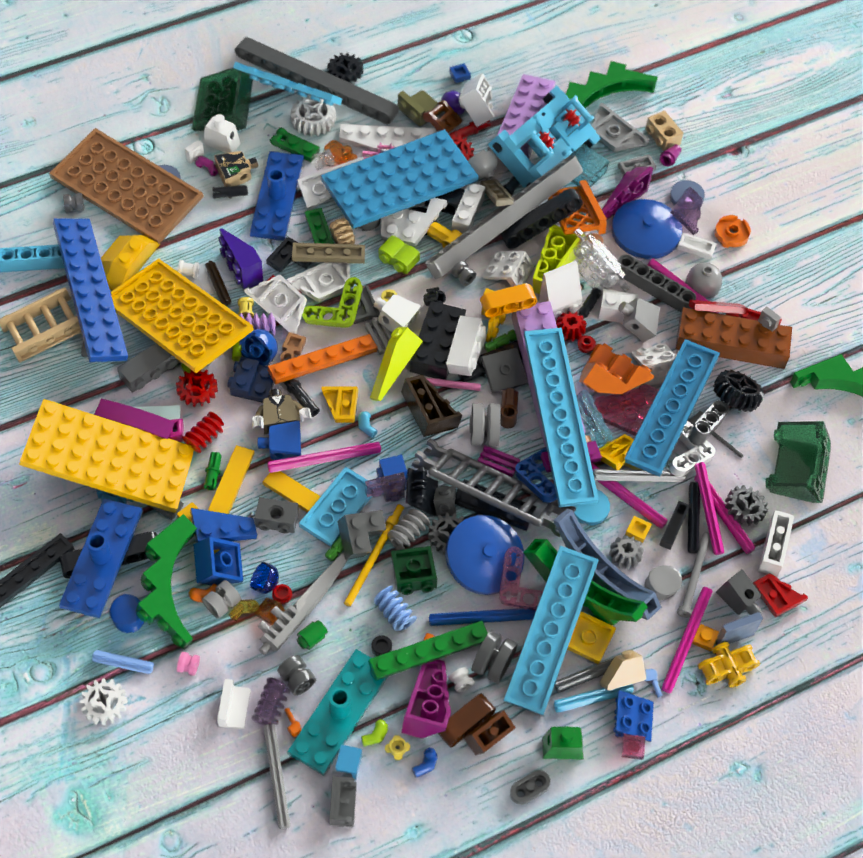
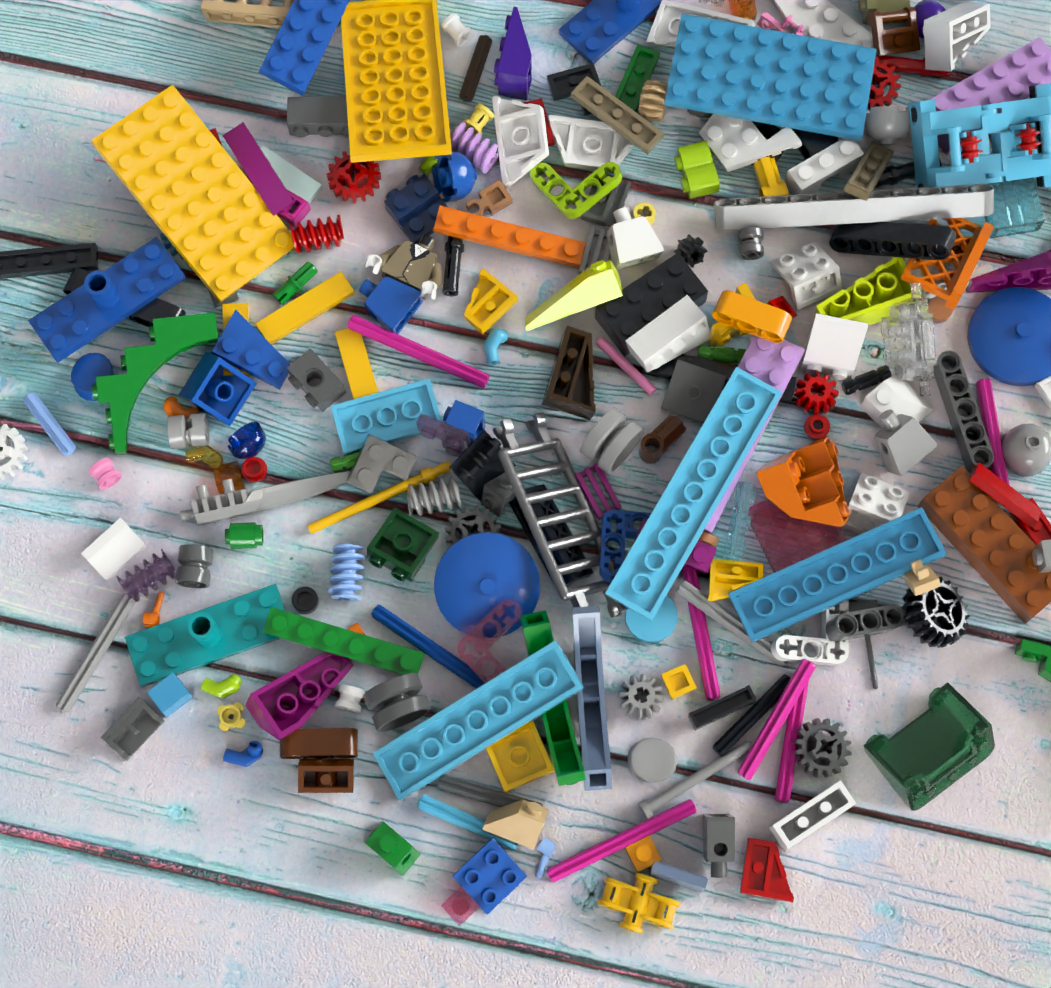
camera: 45 degrees right, 15 degrees up
(529, 788) = (321, 861): dark grey plate -> none
(718, 374) = (921, 578): none -> tan tile

